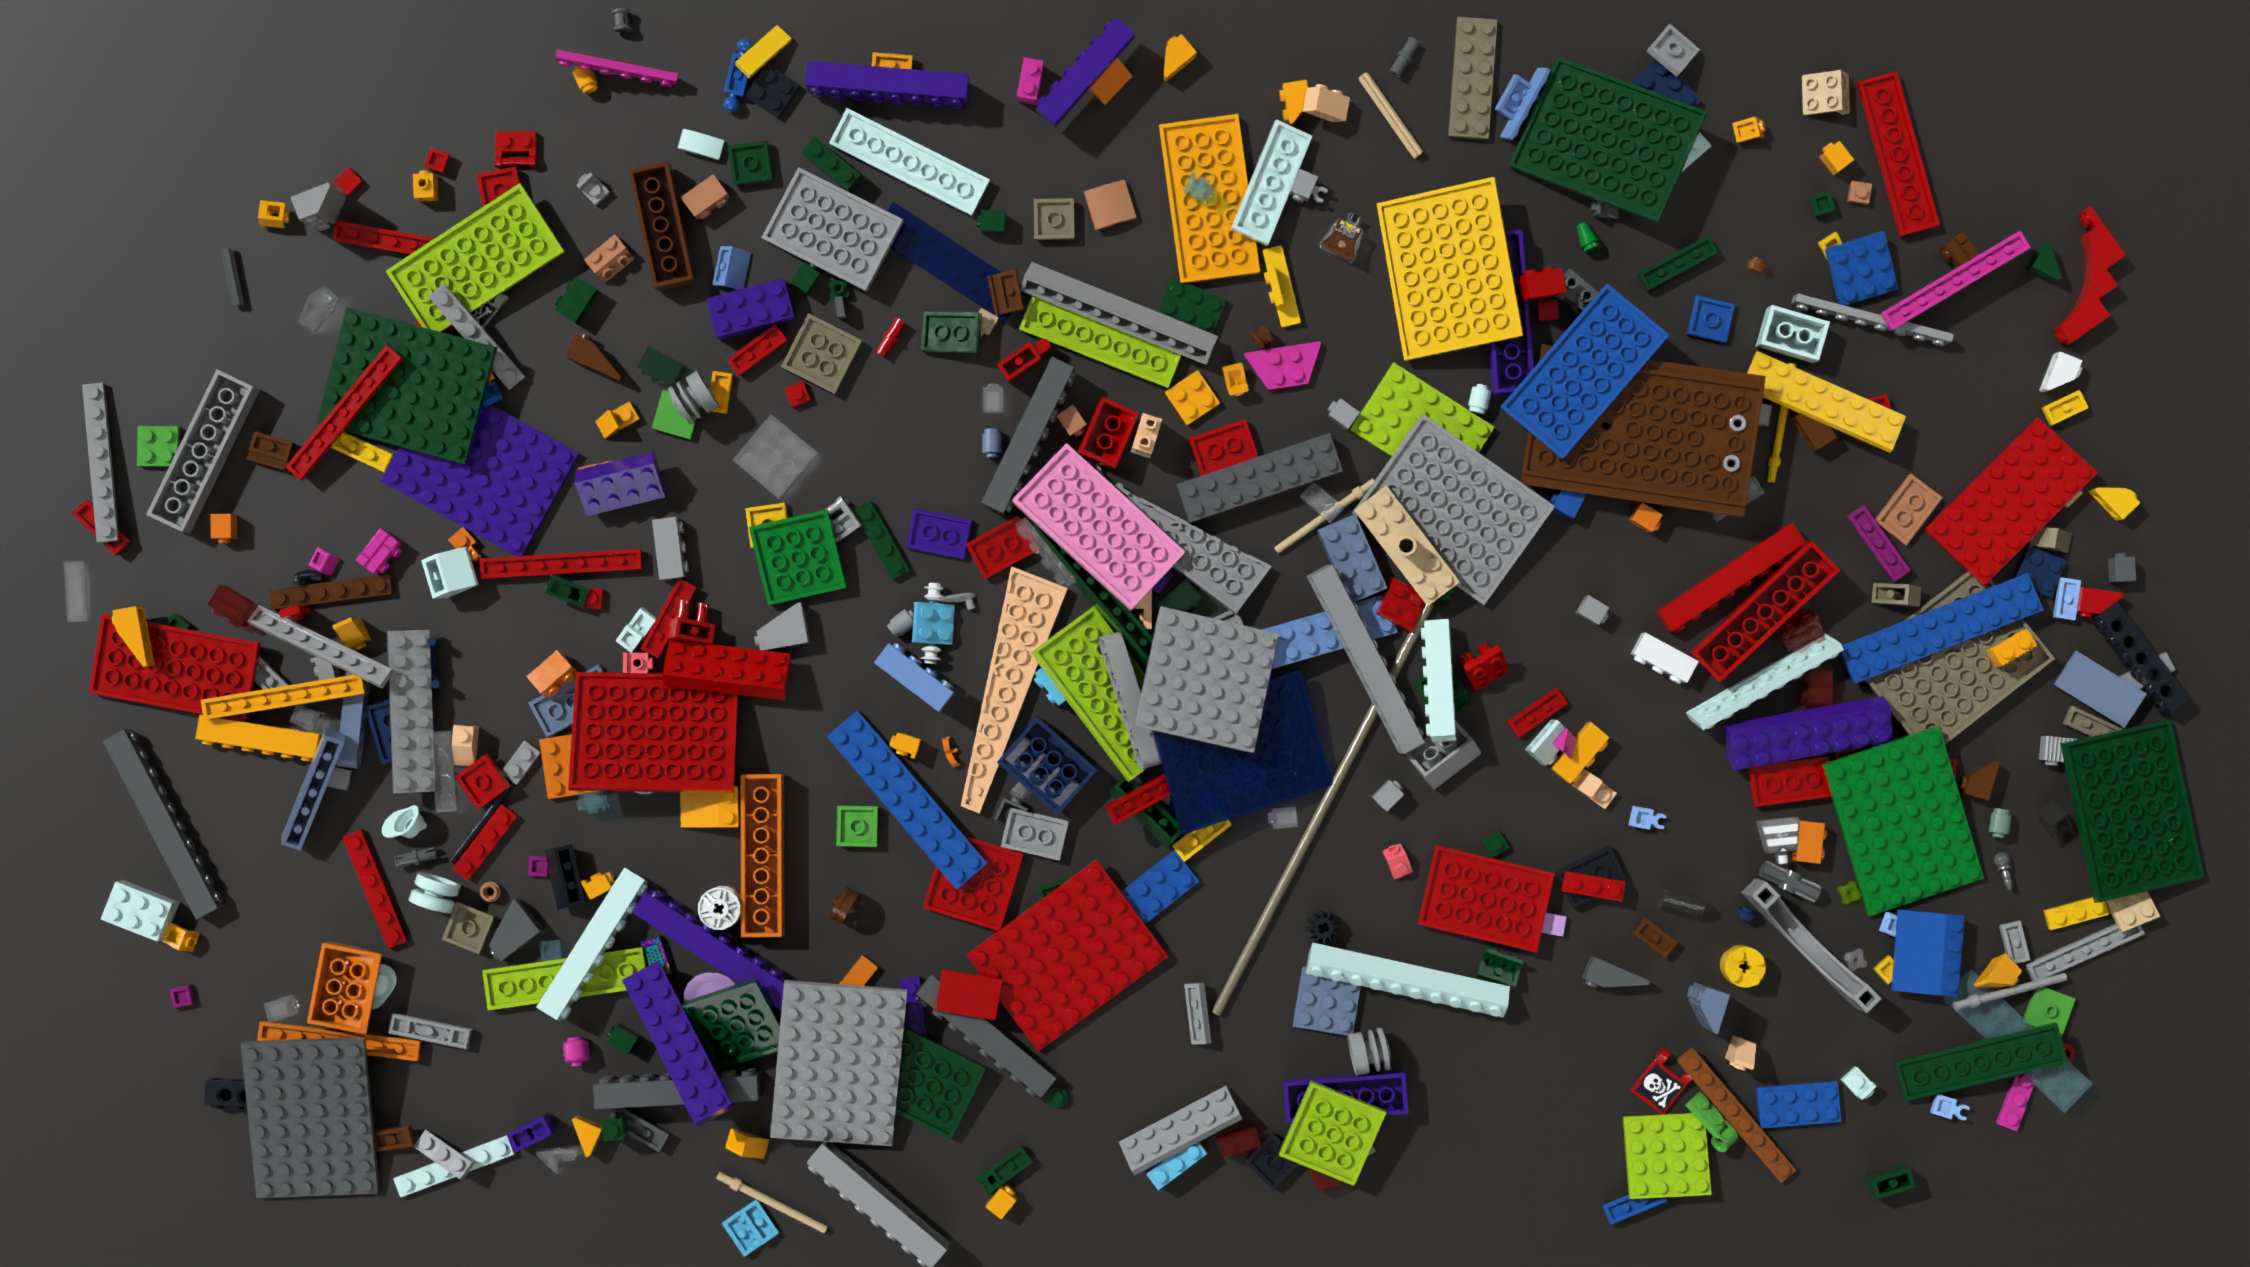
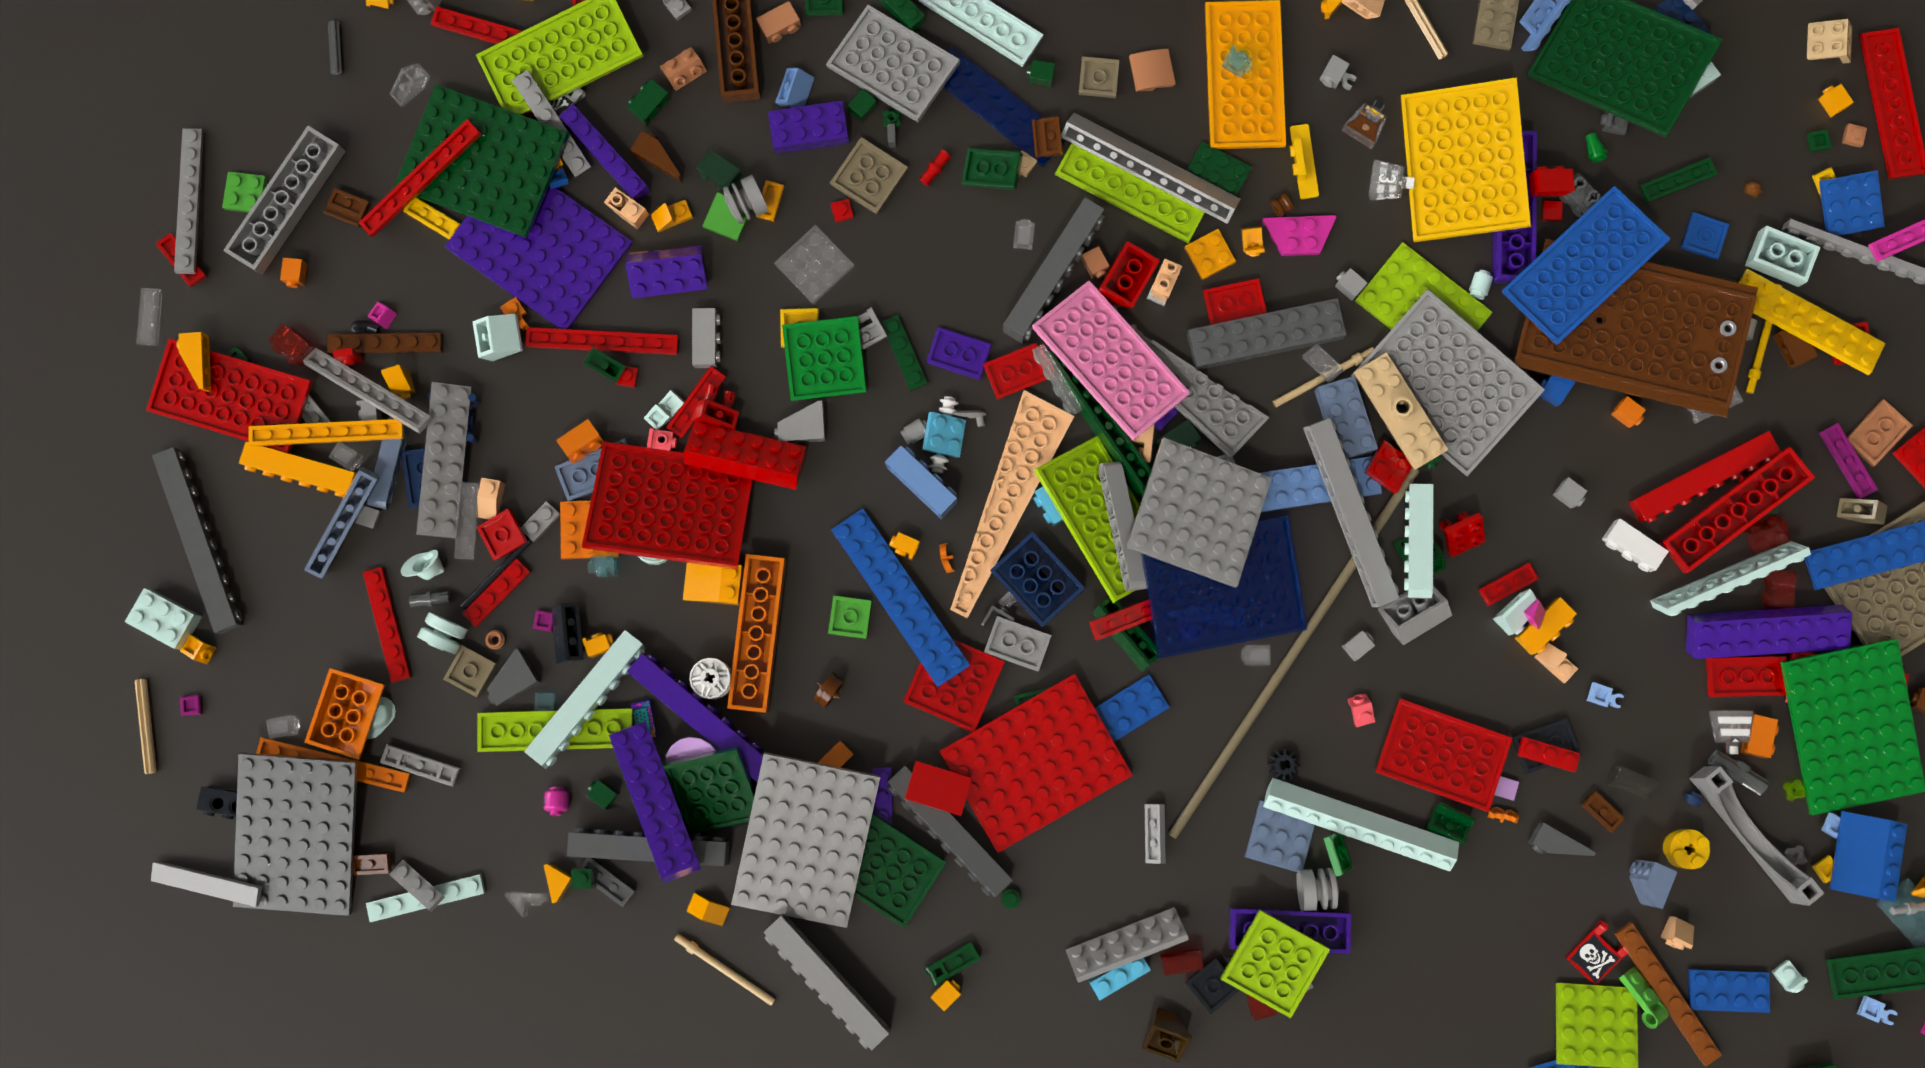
camera: 10 degrees right, 5 degrees down
(137, 1023) = (145, 726): none -> tan axle
(225, 1178) = (206, 883): none -> tile
(380, 552) = (435, 311): dark pink brick -> none
(531, 1132) = (503, 873): dark purple brick -> none
(537, 362) = (604, 153): none -> dark purple brick
(568, 418) = (626, 208): none -> light nougat slope
(750, 1228) = (700, 991): medium azure slope -> none
(757, 350) = (809, 165): red plate -> none
(992, 443) = (1018, 274): sand blue brick -> none
(1023, 359) = (1056, 200): red brick -> none
(1196, 840) = (1174, 665): yellow plate -> none
(1231, 1217) = (1167, 1036): none -> dark brown slope
(1271, 182) = (1305, 65): light aqua plate -> none
(1371, 299) = (1388, 181): none -> clear torso
(1386, 1013) = (1338, 853): none -> green plate
(1495, 844) = (1456, 704): dark green plate -> none
(1549, 951) = (1499, 813): none -> orange piece
(1749, 129) = (1755, 65): light orange bracket -> none

